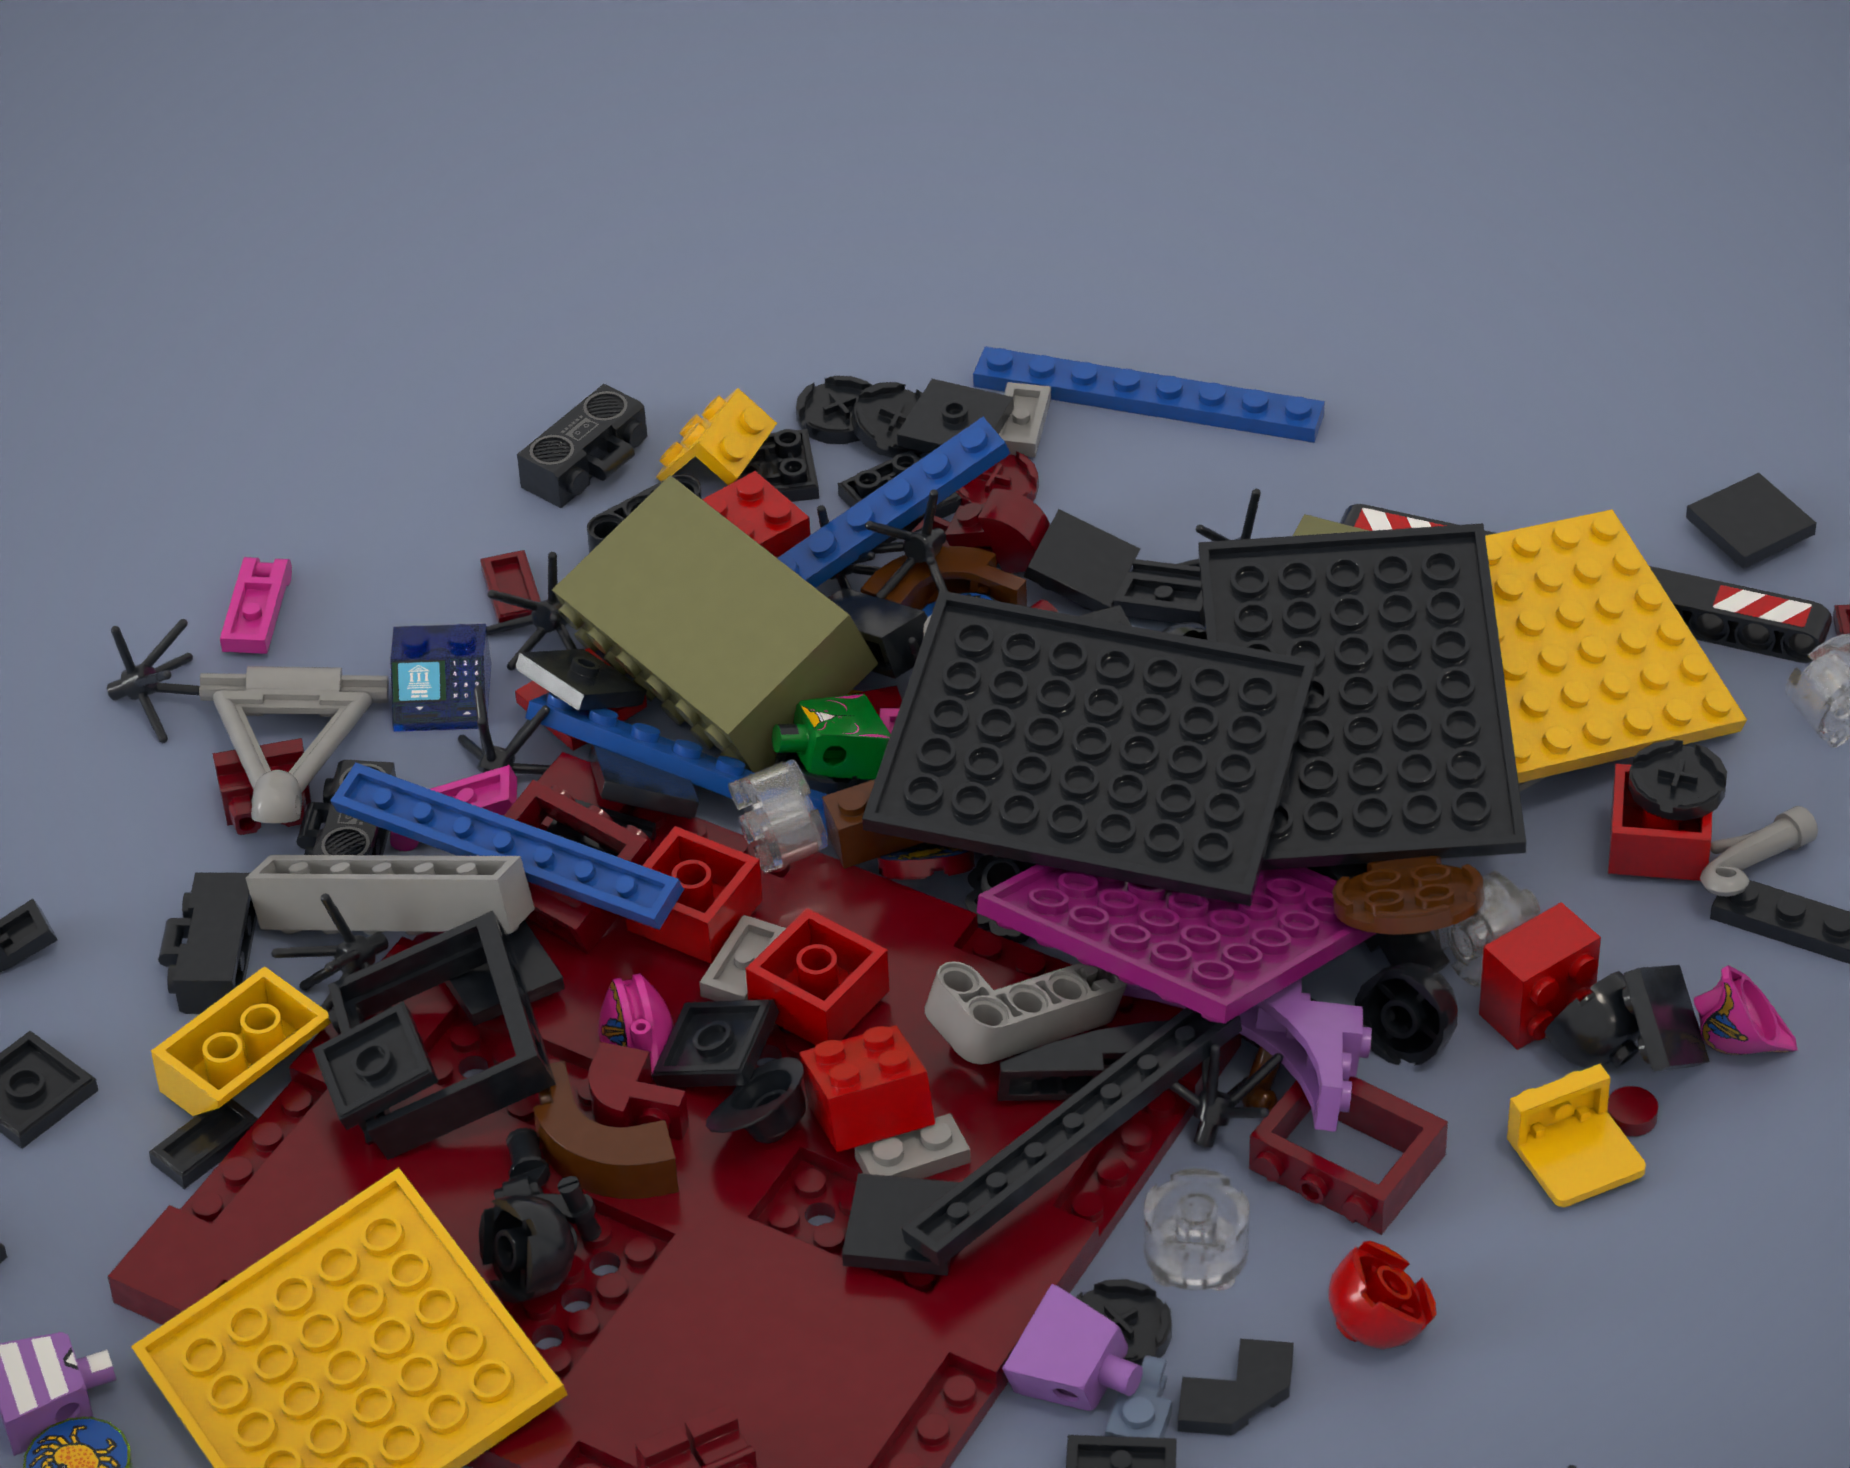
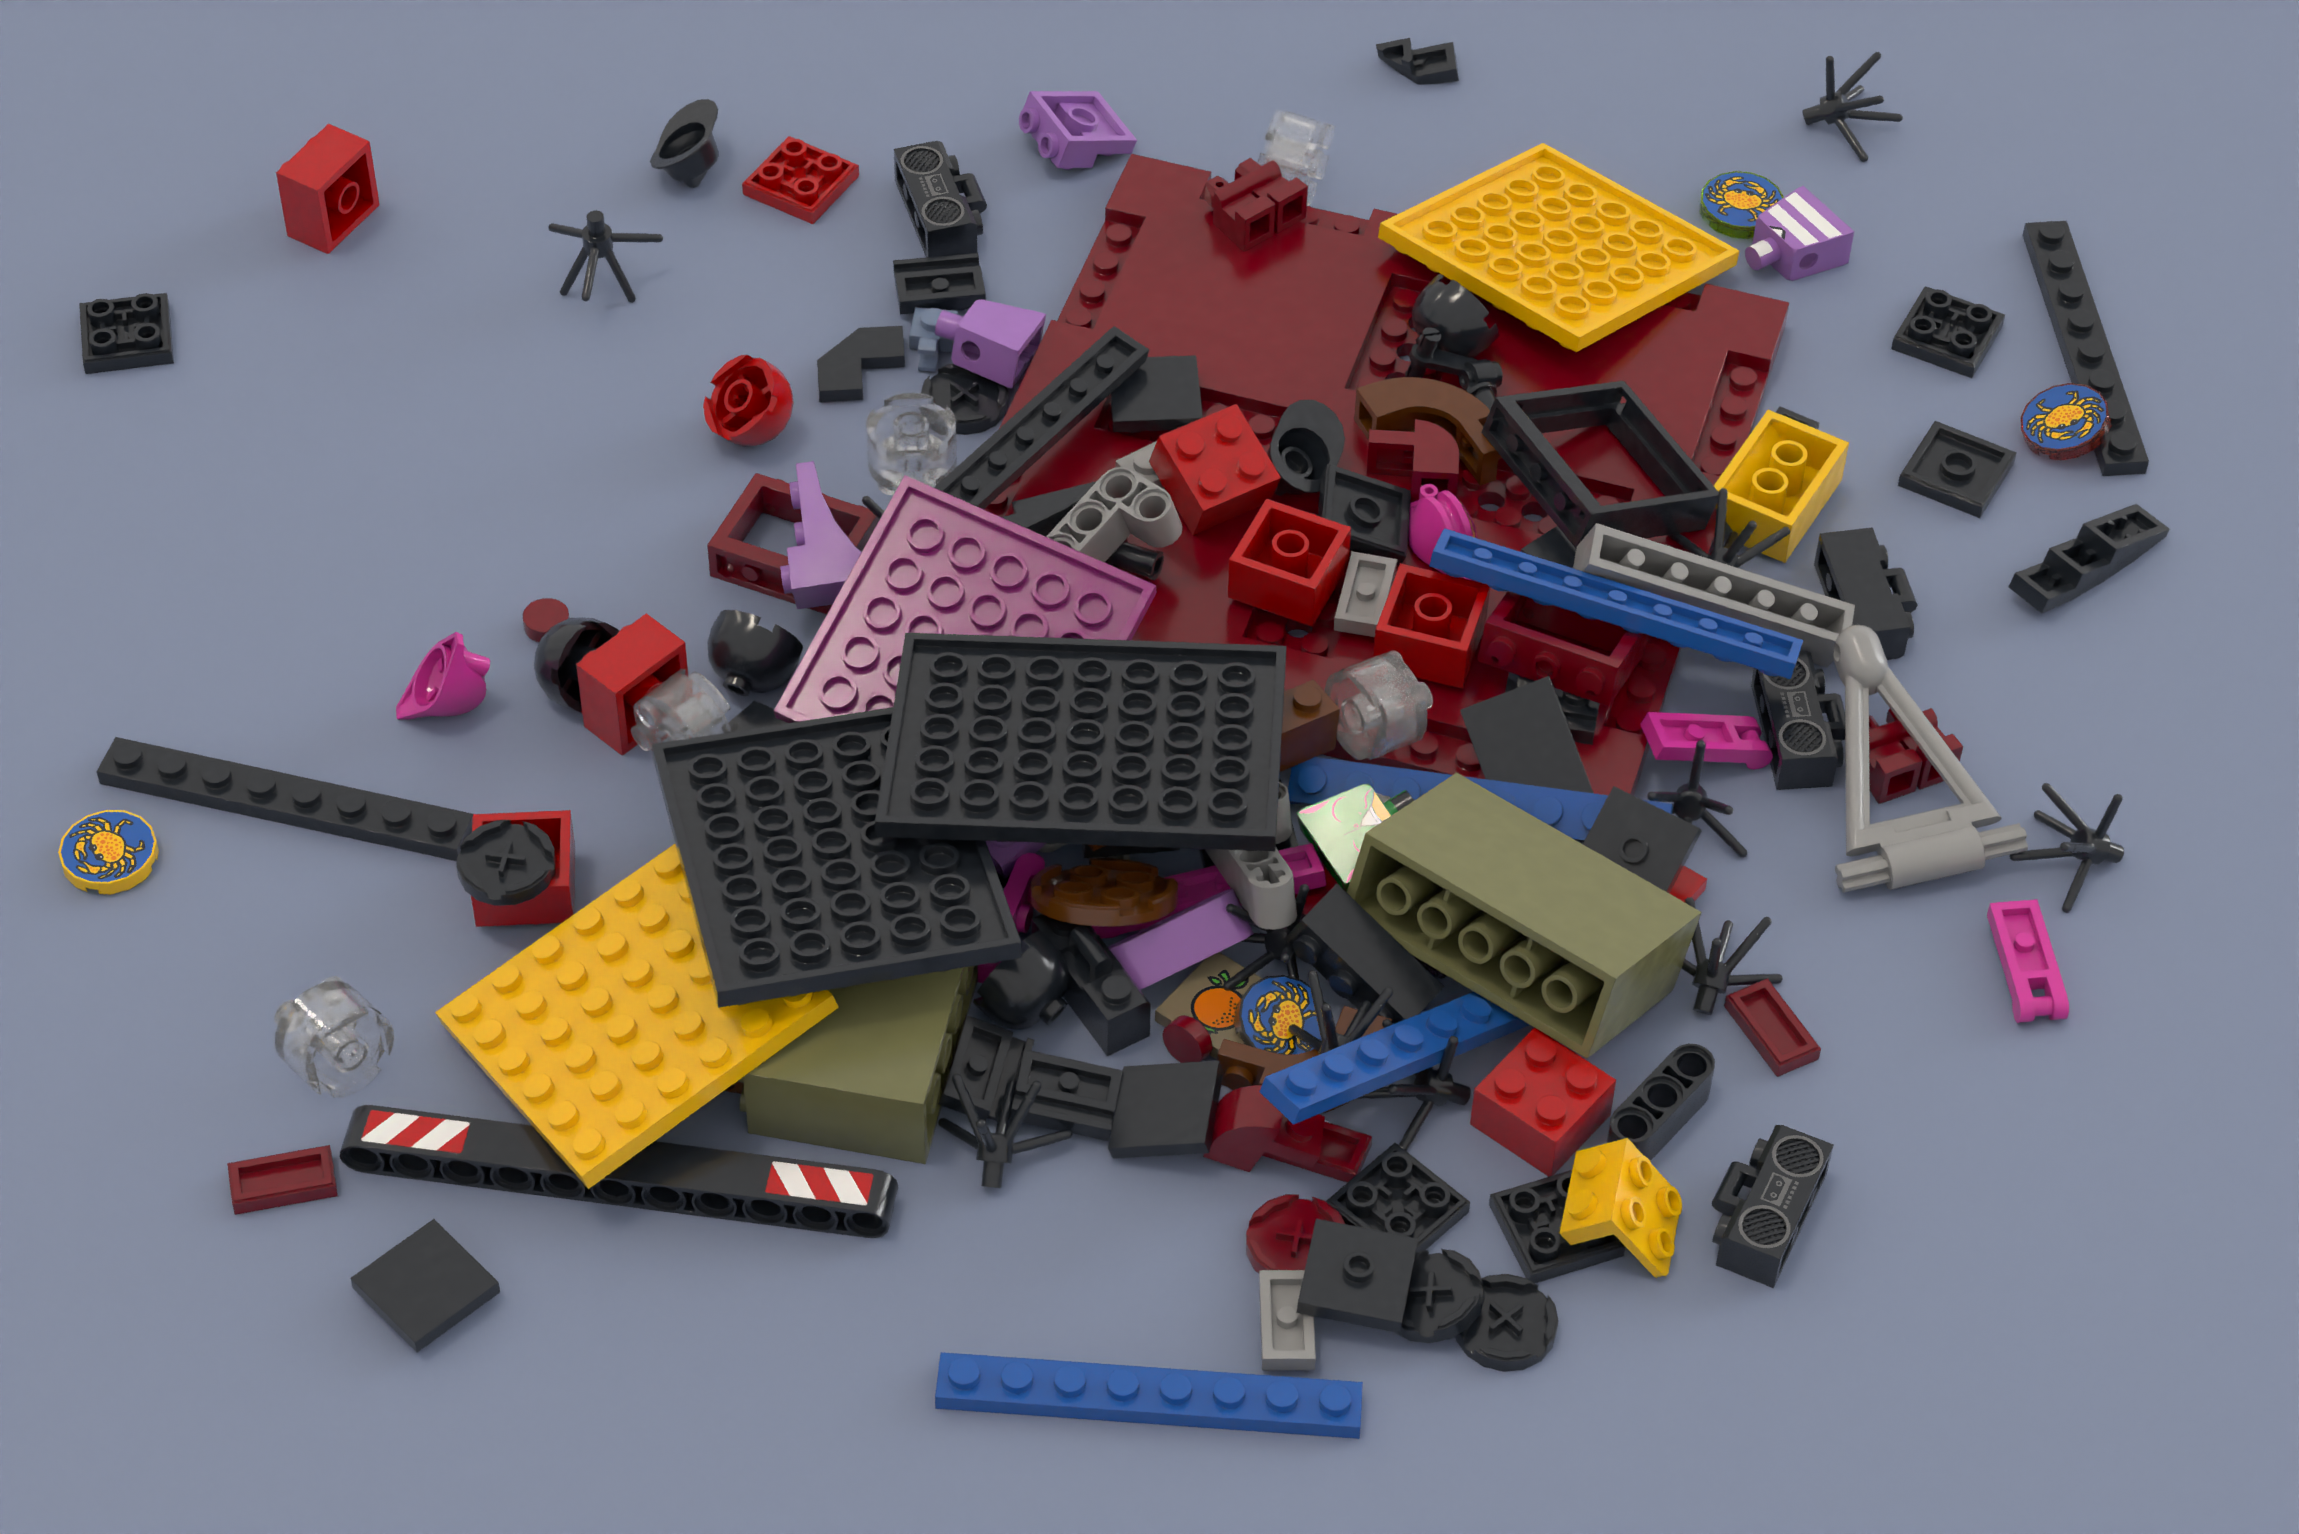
camera: 165 degrees right, 5 degrees up
(375, 1065) = (1638, 408): black plate -> none
(437, 674) = (1799, 893): clear blue slope -> none
(1408, 896) = (758, 675): reddish brown tile -> none
(1572, 1138) = (597, 572): yellow bracket -> none
(1665, 1018) = (516, 643): black tile -> none
(1788, 831) = (435, 871): light grey plant -> none

